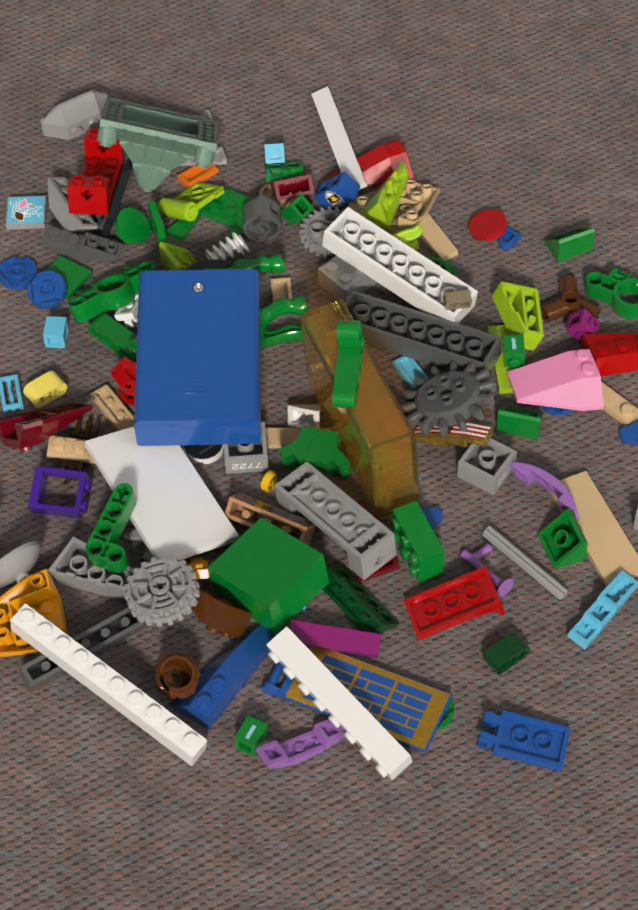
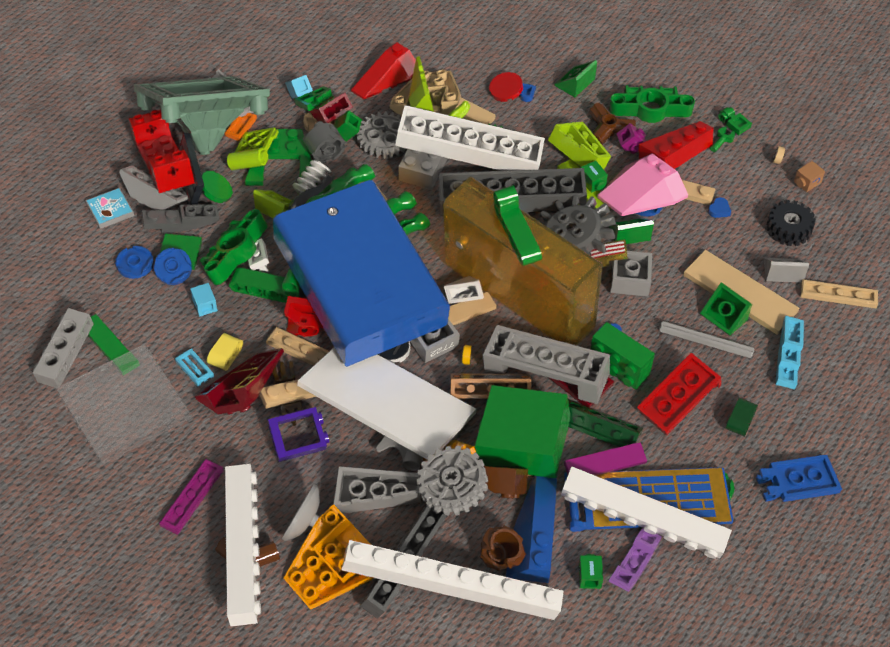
camera: 30 degrees left, 0 degrees up
(74, 116) = (105, 113): light grey wedge -> none
(122, 503) = (373, 441): green beam -> none
(156, 223) = (240, 179): green tile -> none
(319, 449) = (496, 310): green slope -> none
(337, 135) = (344, 58): white tile -> none
(337, 191) = (373, 99): blue brick -> none
(457, 299) = (535, 149): dark tan piece -> none
(503, 586) = (668, 354): medium lavender piece -> none
(530, 473) = (688, 268): medium lavender slope -> none

